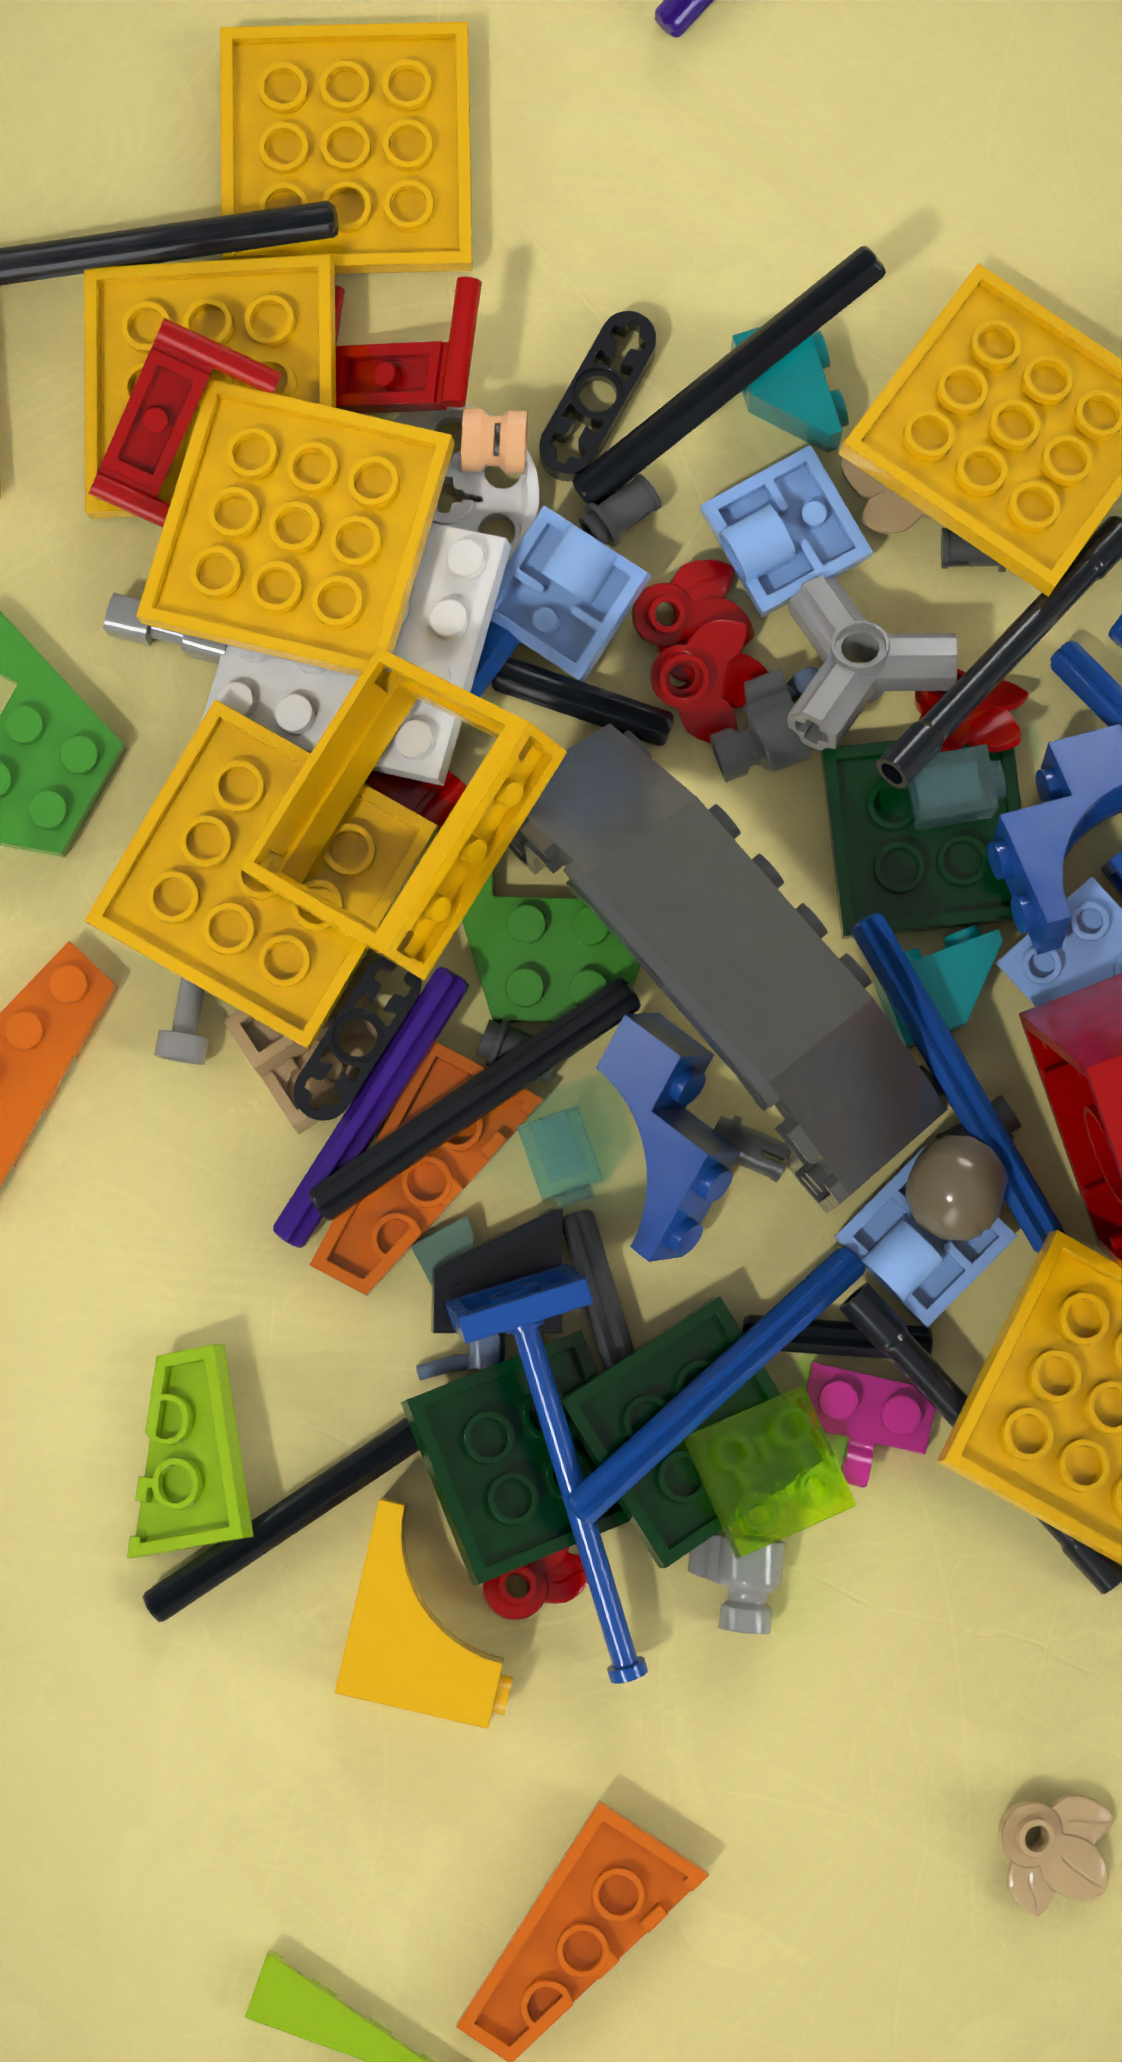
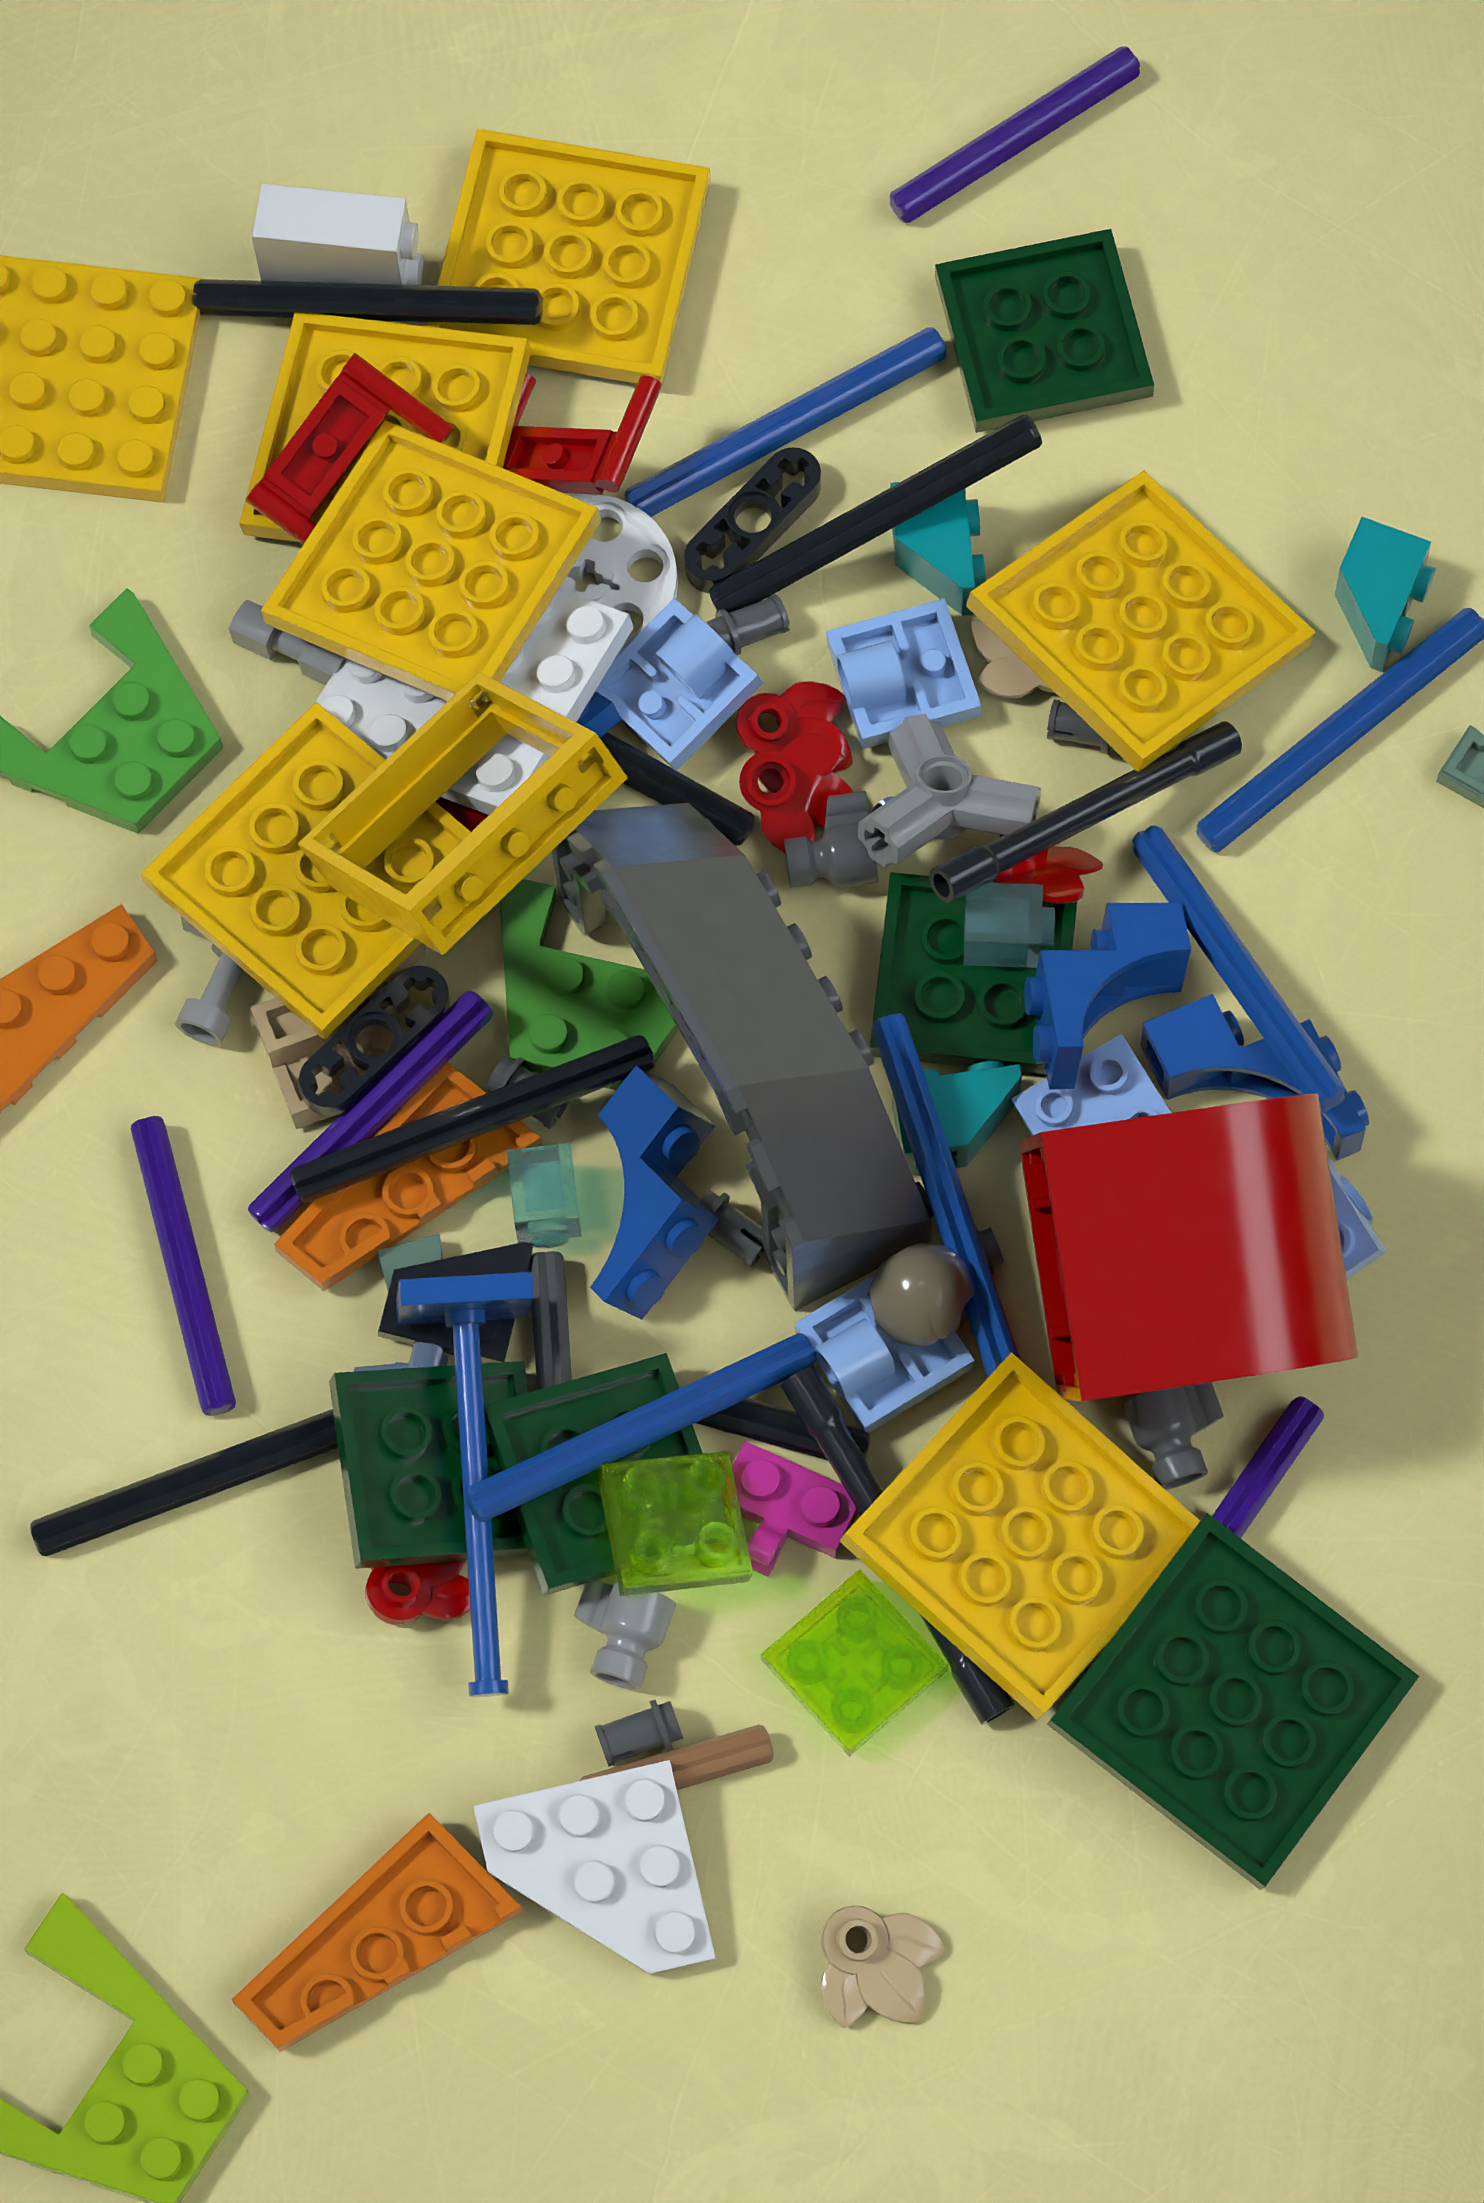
camera: 10 degrees right, 15 degrees down
(108, 186) = (334, 237): none -> white brick
(194, 1459) = (115, 1409): lime wing -> none
(223, 1300) = (183, 1266): none -> dark purple axle
(402, 1651) = (270, 1628): yellow arch -> none
(479, 440) = (641, 531): light nougat wheel -> none
(608, 282) = (787, 422): none -> blue axle
(777, 1813) = (607, 1862): none -> white plate
(779, 1675) = (639, 1732): none -> dark grey pin
(821, 1701) = (710, 1757): none -> medium nougat axle
(843, 129) = (1044, 330): none -> dark green plate
(969, 1561) = (854, 1662): none -> clear neon green tile

